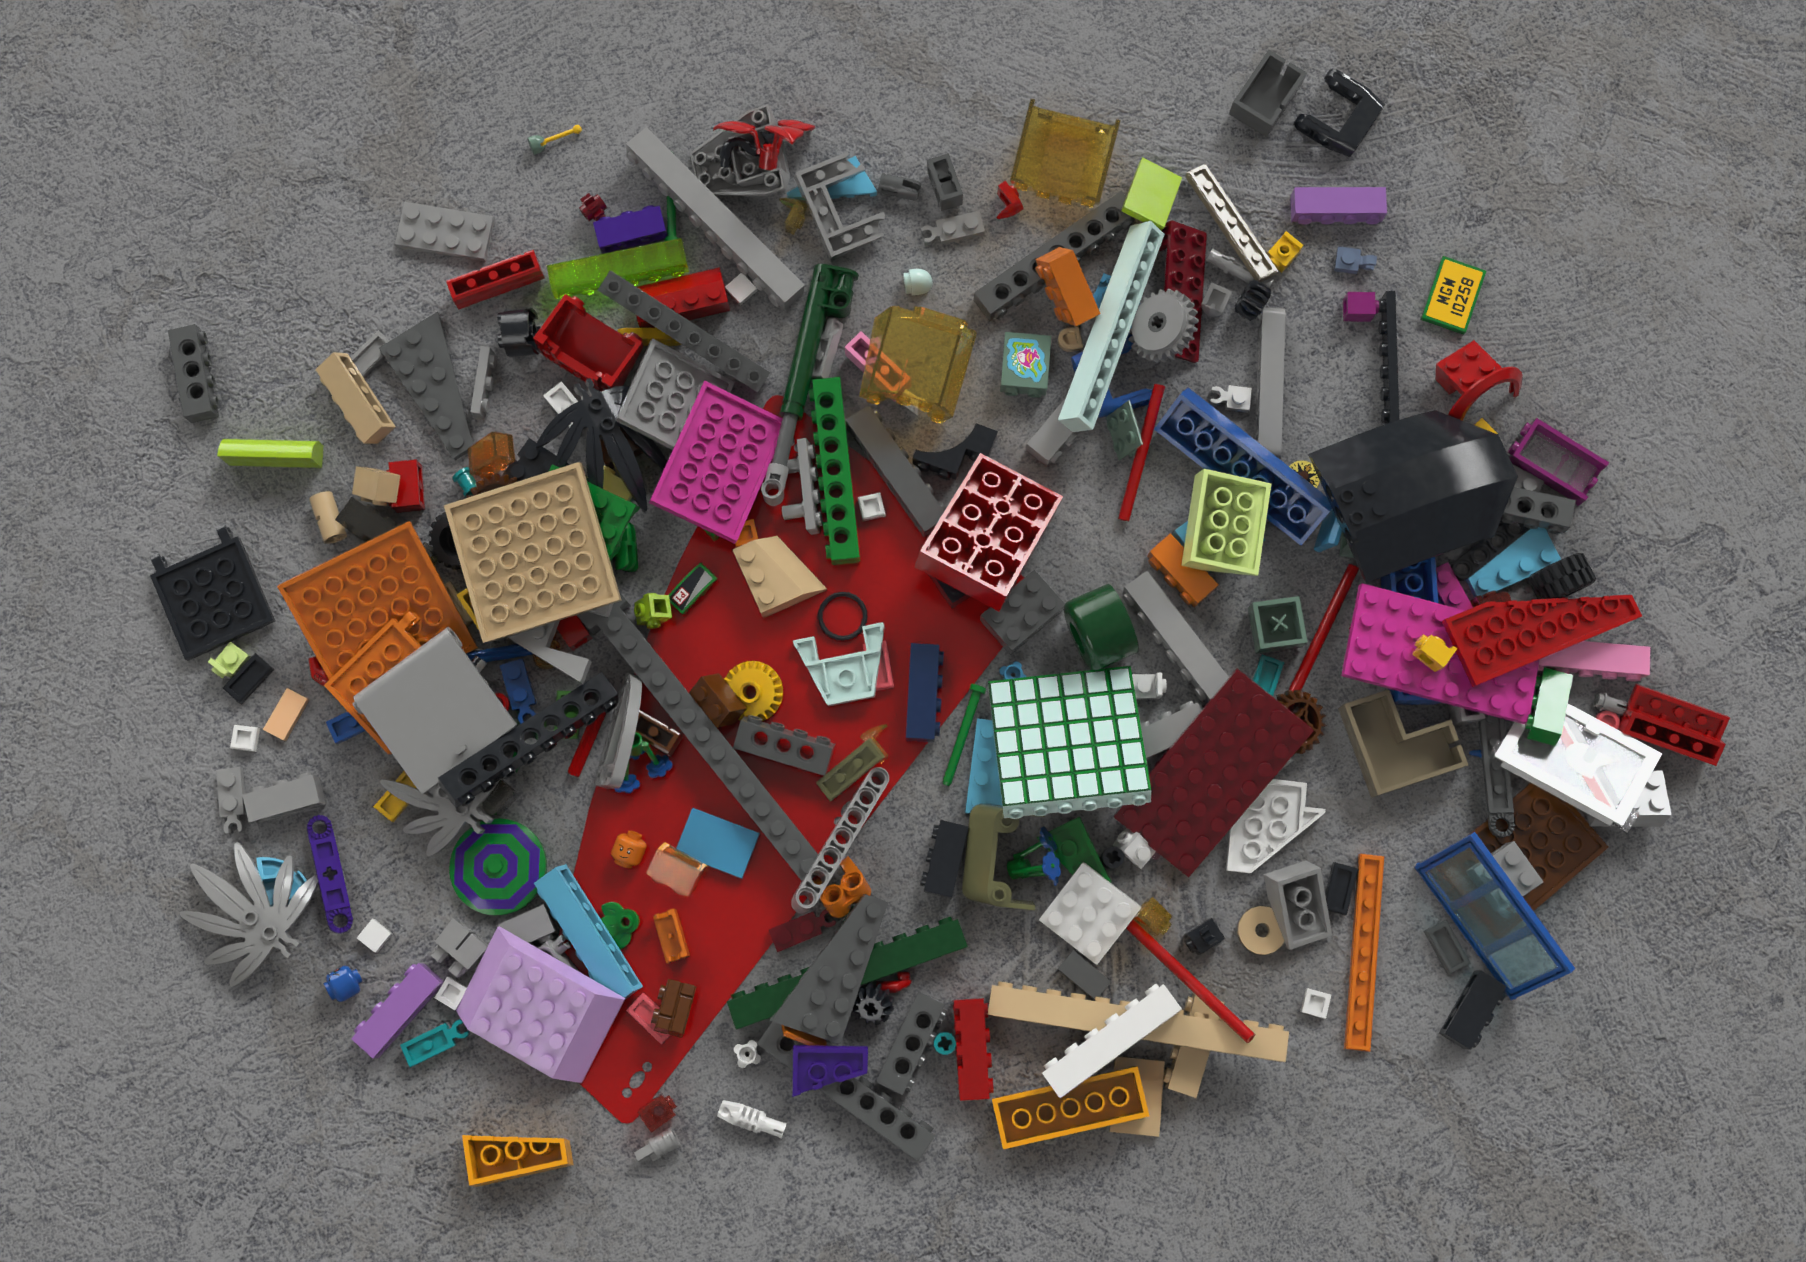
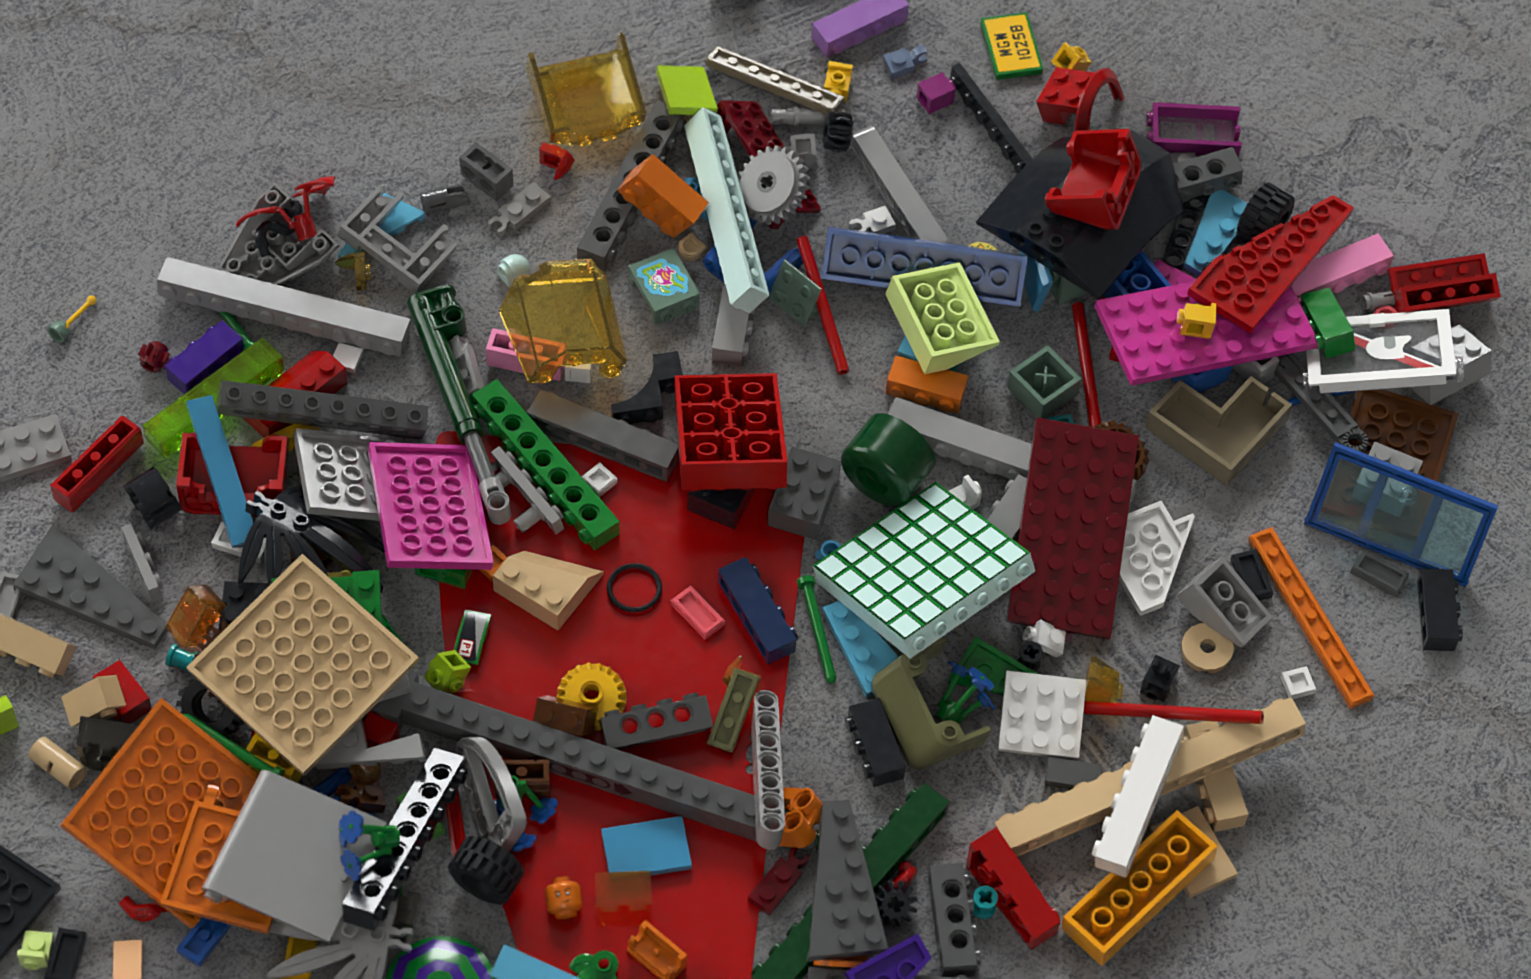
camera: 35 degrees left, 20 degrees down
(468, 626) = (237, 750): none -> green bar
(501, 737) = (351, 828): none -> plant
(532, 679) = (365, 797): none -> reddish brown plate
(577, 339) = (220, 468): none -> dark azure tile
(579, 796) = (486, 870): none -> black tyre
(845, 676) = (674, 634): light aqua wing -> none
(1427, 482) = (1099, 179): none -> red windscreen
(1499, 339) = (1073, 57): none -> yellow brick

